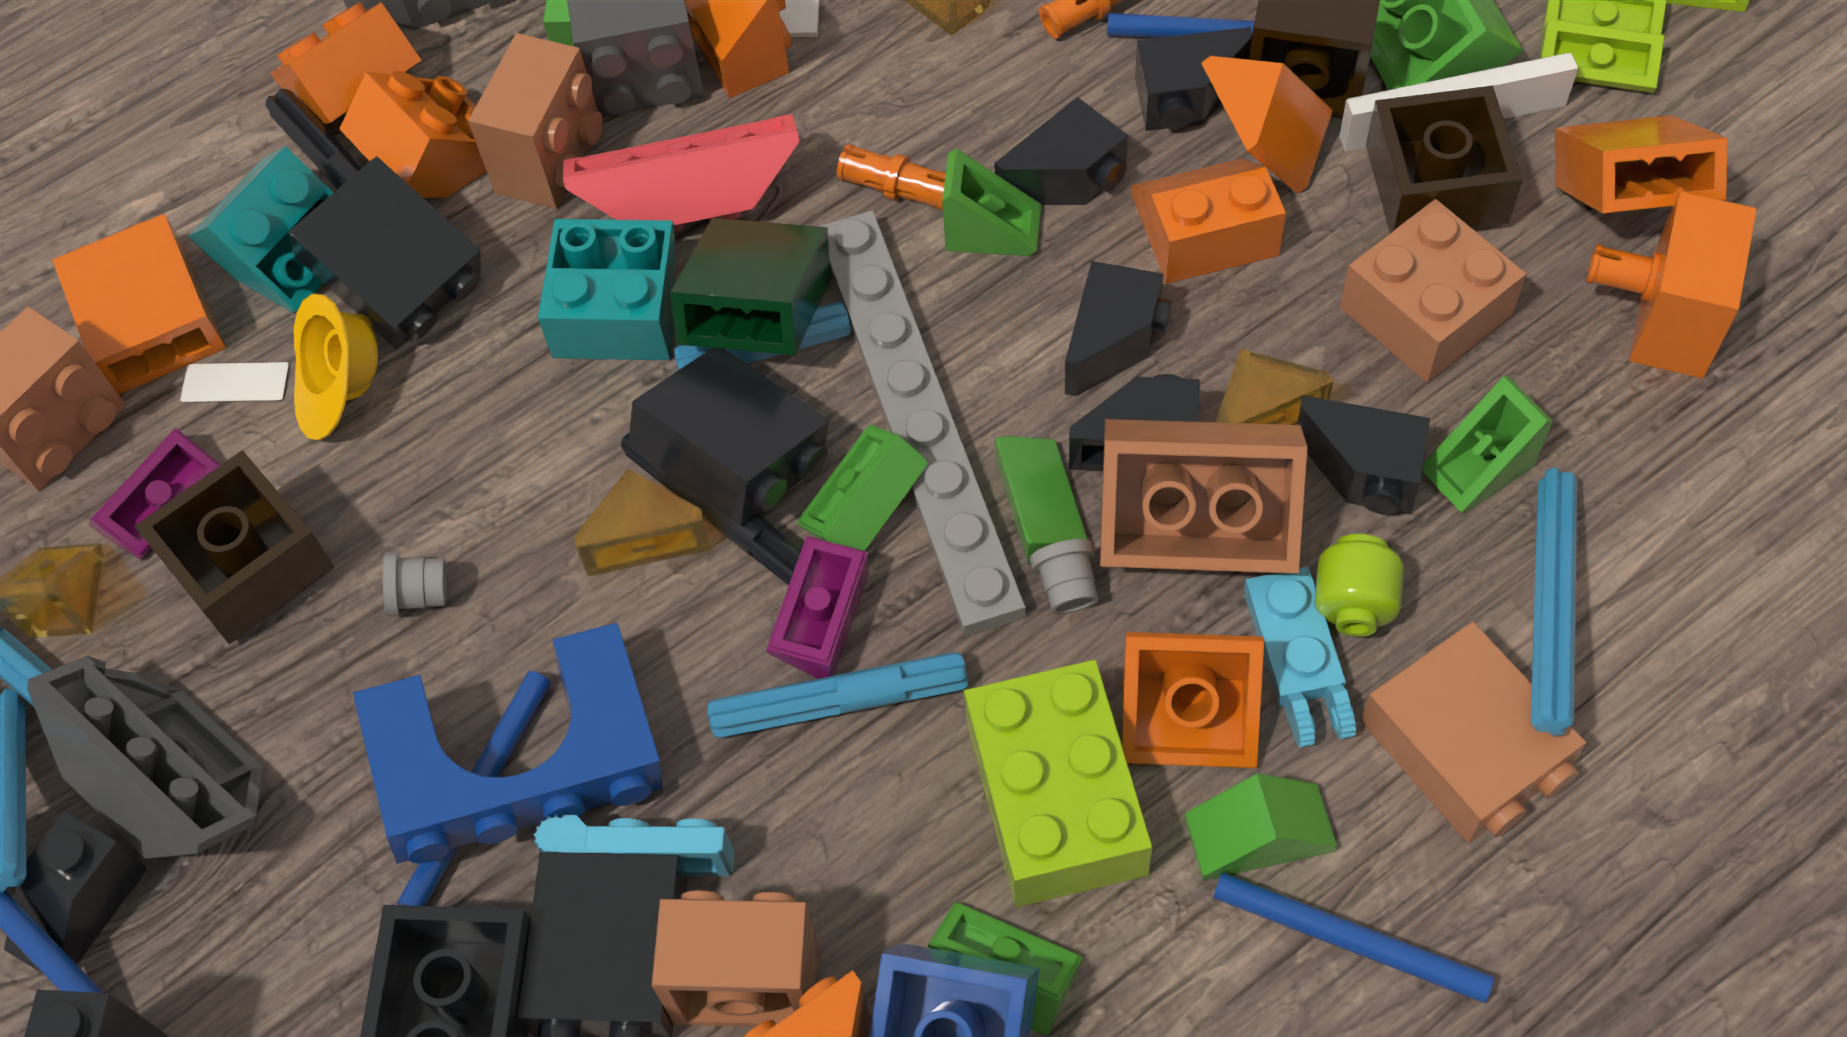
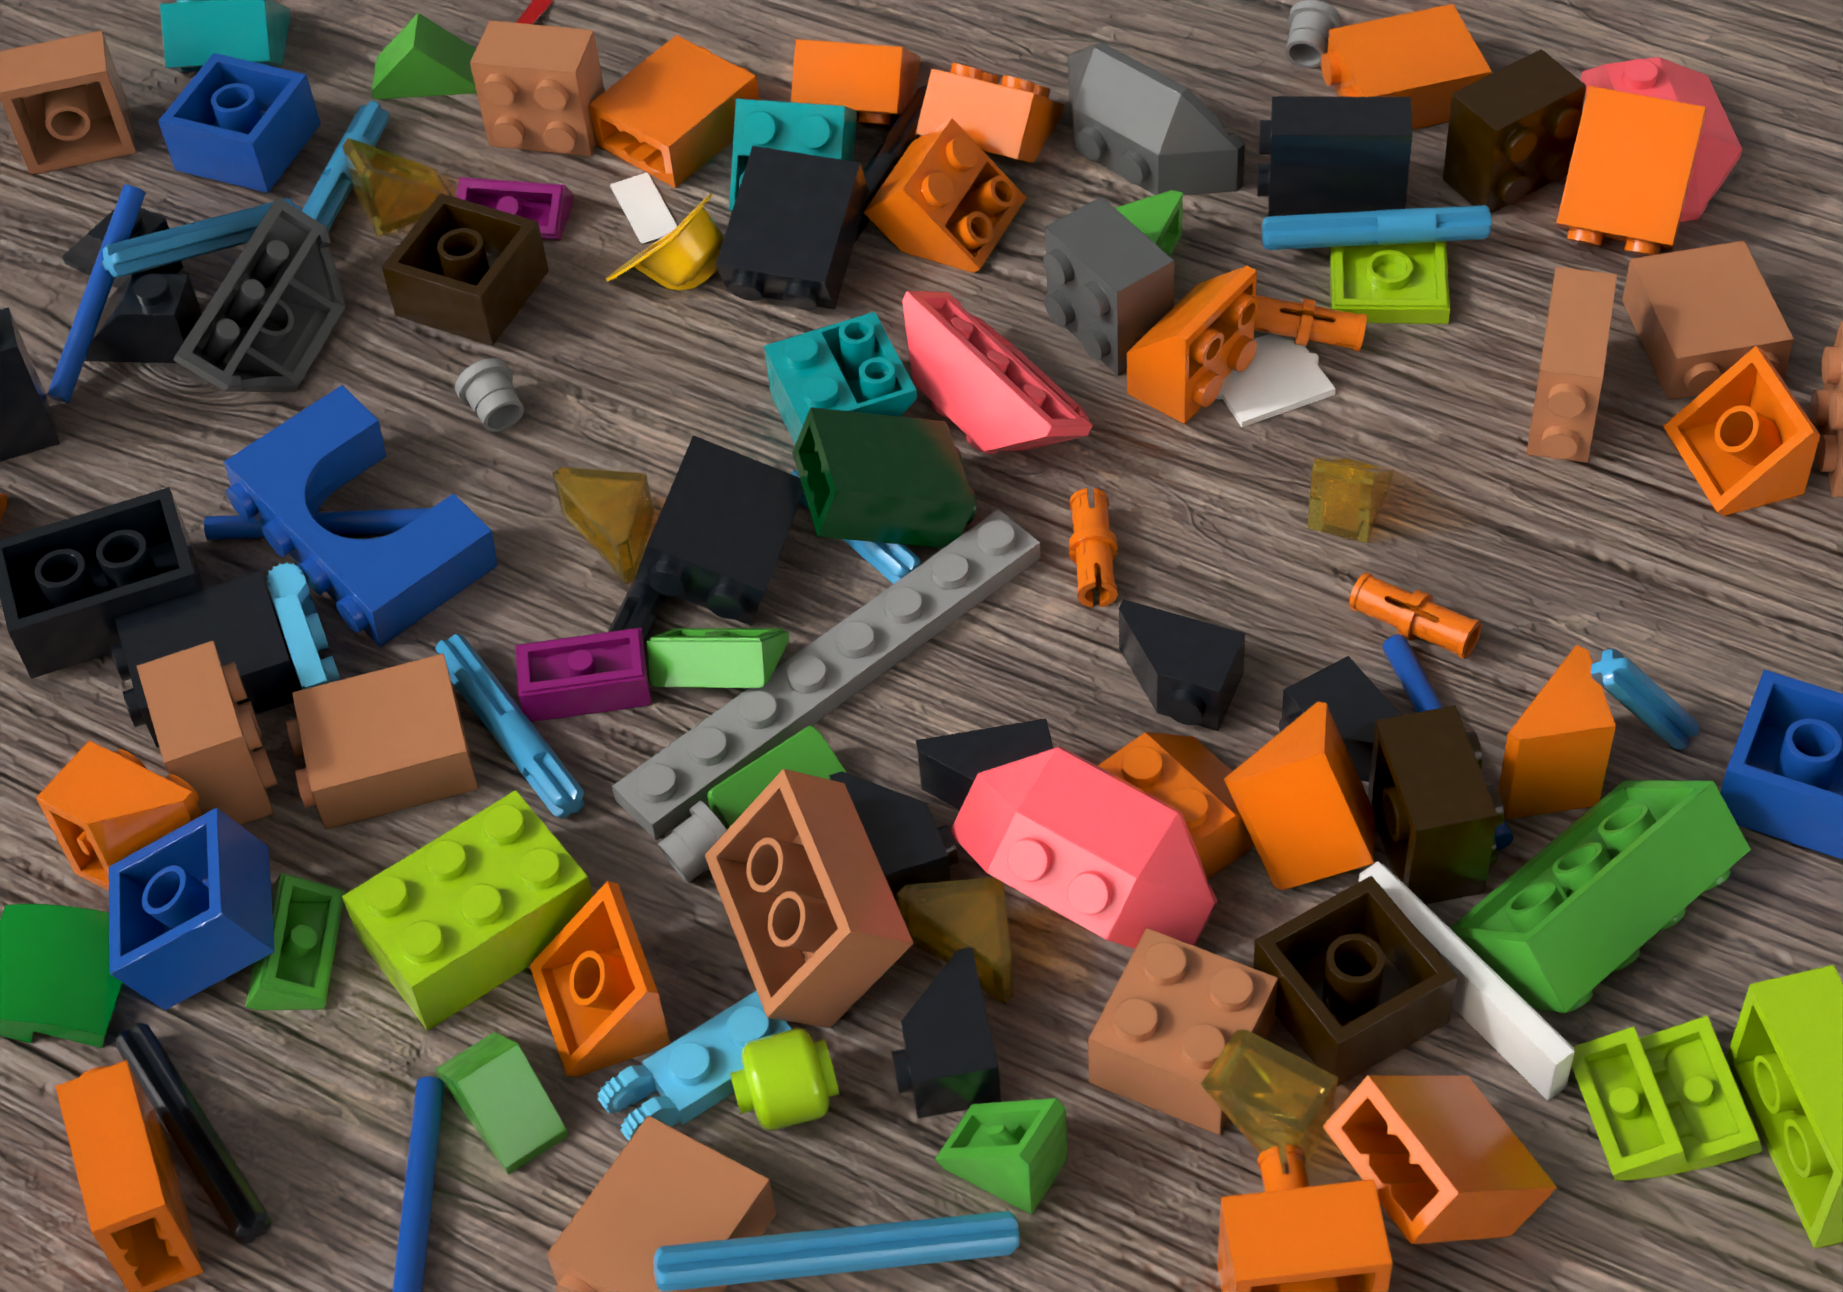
camera: 65 degrees right, 10 degrees down
(216, 146) = (860, 76): none -> orange slope
(534, 118) = (986, 251): nougat brick -> none
(806, 808) = (381, 742): none -> nougat brick
(986, 211) = (1081, 621): bright green slope -> none
(1238, 282) = (1087, 847): none -> coral wedge
(1548, 241) = (1272, 1094): none -> clear yellow slope

